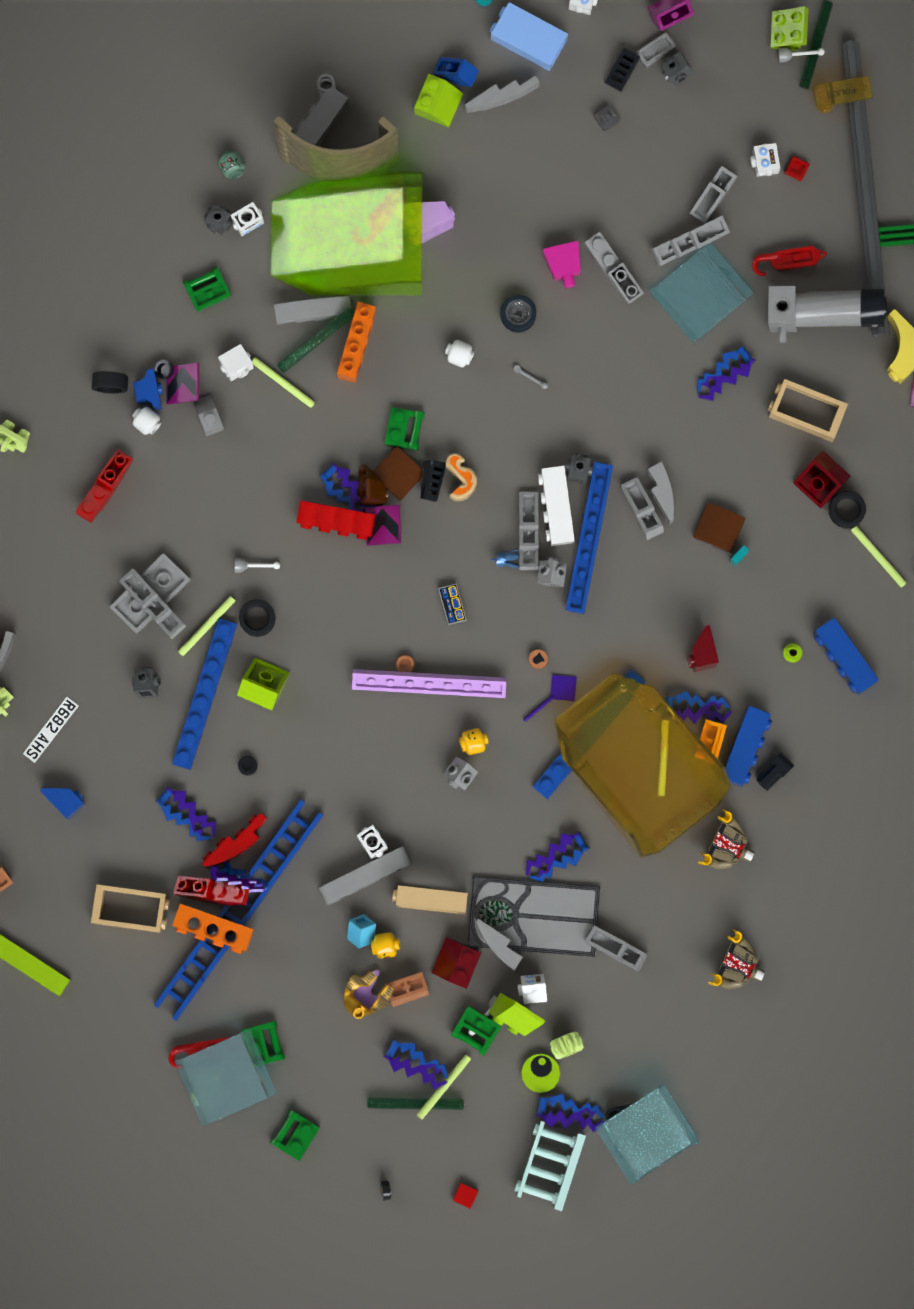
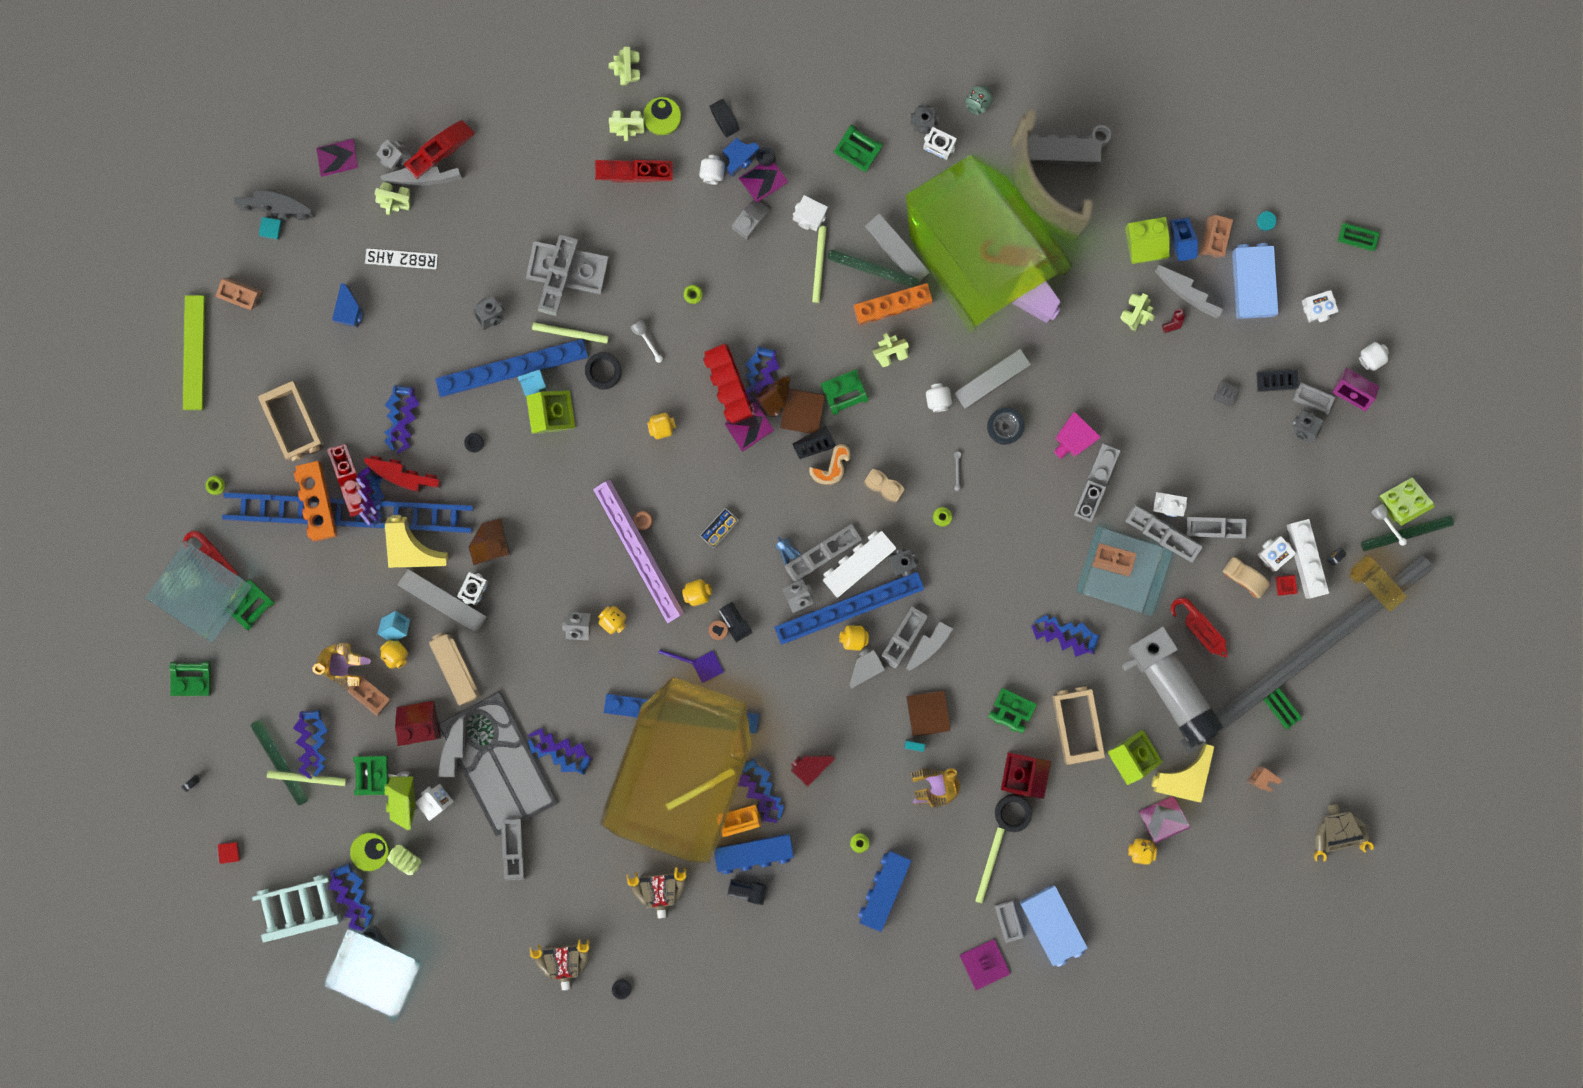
camera: 55 degrees right, 5 degrees up
(62, 469) = (626, 126): none -> yellowish green hips
(73, 434) = (662, 116): none -> lime tile
(137, 1005) = (209, 485): none -> lime plate
(229, 683) = (532, 382): none -> medium azure panel
(236, 498) = (688, 290): none -> lime plate
(302, 879) = (405, 549): none -> light yellow arch
(335, 598) = (661, 425): none -> yellow head
(341, 805) = (489, 543): none -> reddish brown slope
(390, 367) = (898, 347): none -> yellowish green hips
(470, 44) = (1216, 236): none -> nougat hinge
(472, 299) = (992, 378): none -> light grey slope
(487, 139) = (1141, 313): none -> yellowish green hips
(495, 656) = (697, 592): none -> yellow head
(507, 443) = (880, 483): none -> tan brick
(521, 120) = (1176, 322): none -> dark red arm
(546, 640) = (736, 625): none -> black piece
(561, 419) = (937, 521): none -> lime plate
(616, 549) = (854, 637): none -> yellow head
(647, 555) = (865, 667): none -> light grey slope
(670, 219) = (1170, 504): none -> white head
(687, 293) = (1114, 559): none -> nougat hinge
(756, 452) = (1015, 705): none -> green plate
(770, 195) = (1246, 577): none -> tan animal
(786, 137) = (1307, 559): none -> white brick
(790, 553) = (944, 786): none -> pearl gold piece
(791, 931) = (621, 989): none -> black tile
(799, 112) = (1336, 556): none -> black tile
(863, 380) = (1135, 757): none -> lime slope

